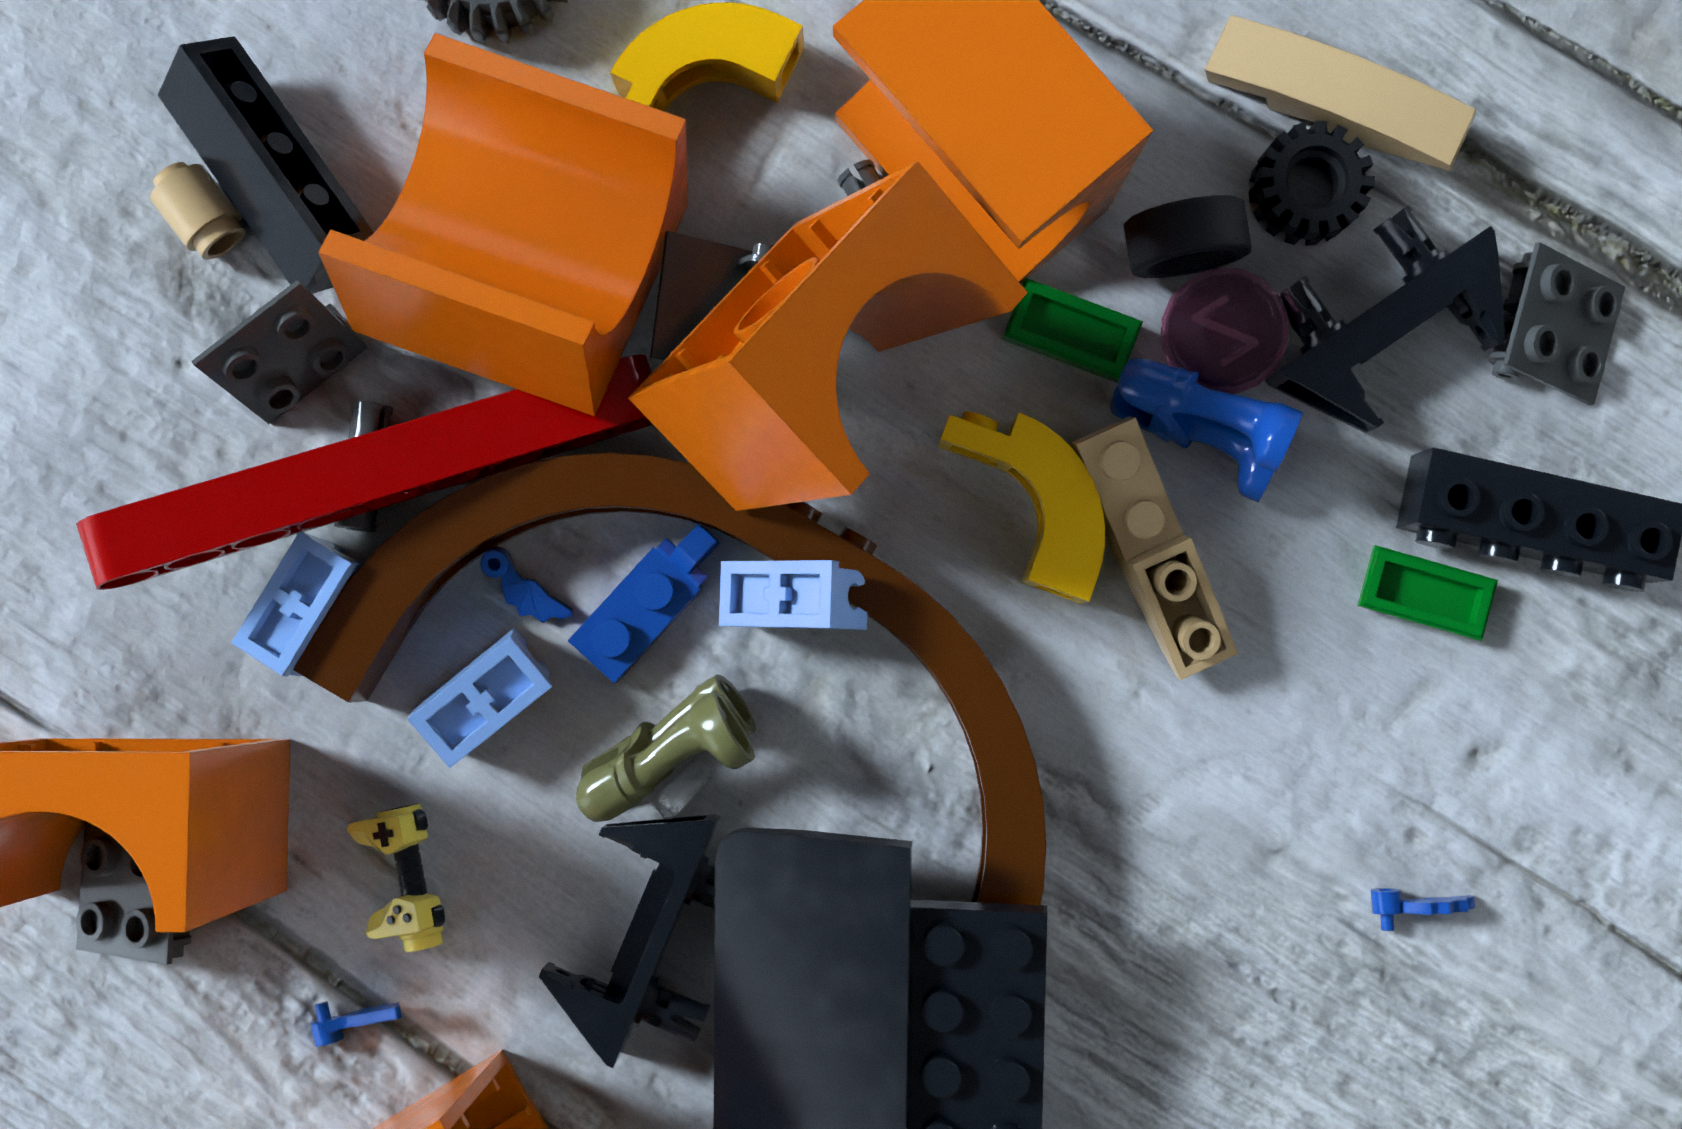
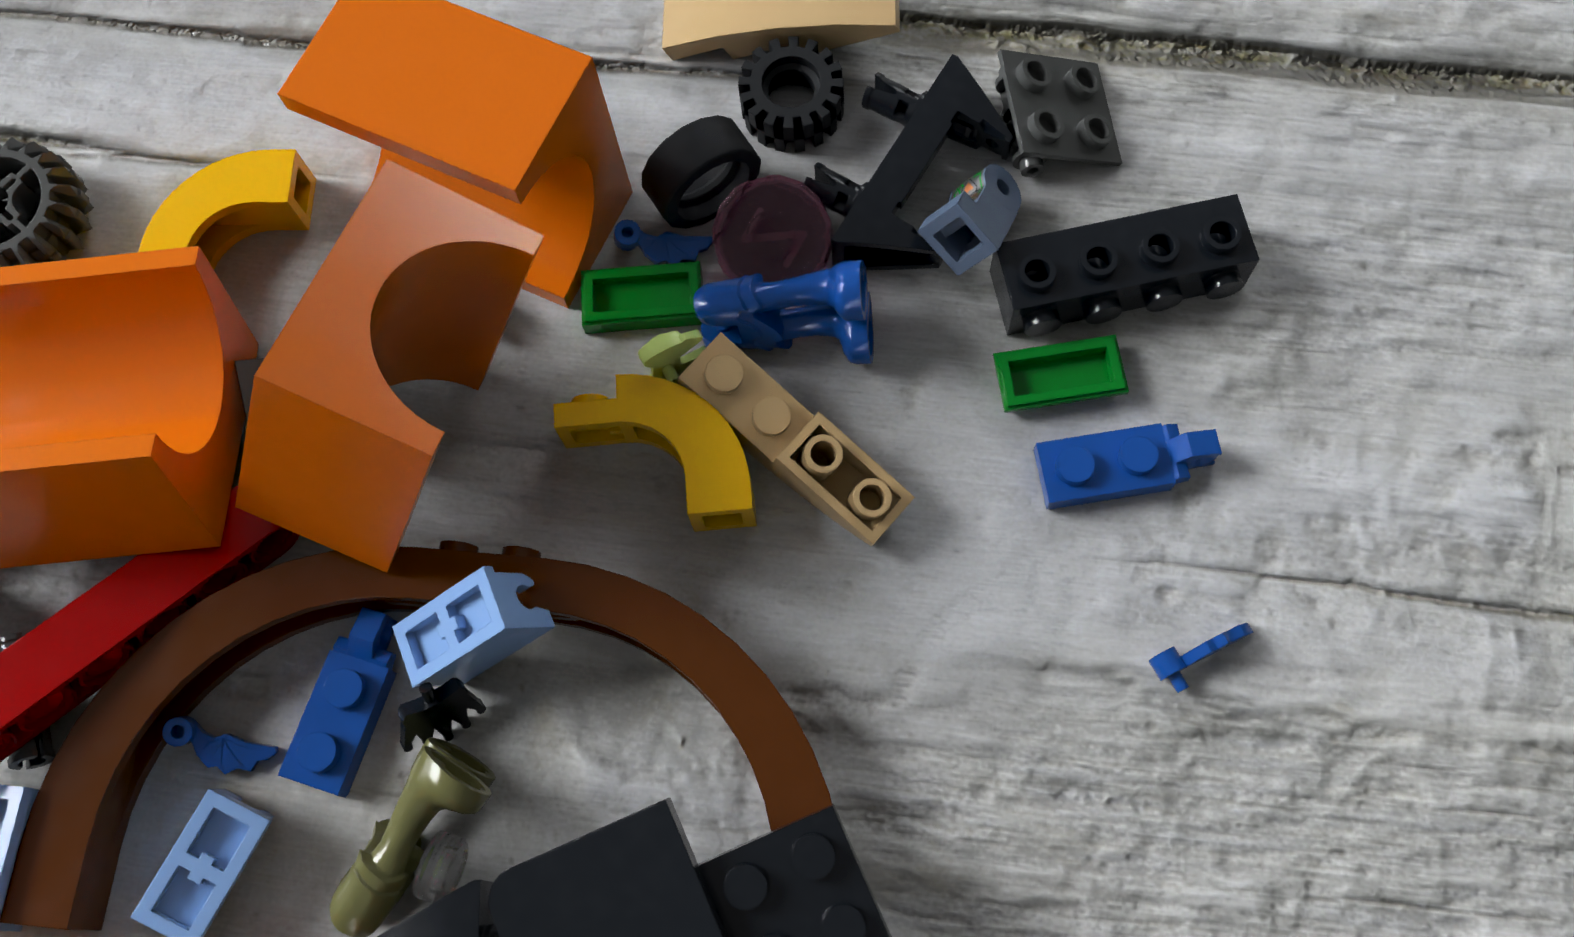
camera: 20 degrees left, 15 degrees down
(728, 650) = (436, 711): none -> black piece
(1076, 413) = (664, 353): none -> yellowish green piece
(1115, 290) = (660, 249): none -> blue piece
(1432, 404) = (973, 219): none -> sand blue leg
(1438, 702) = (1121, 463): none -> blue hinge

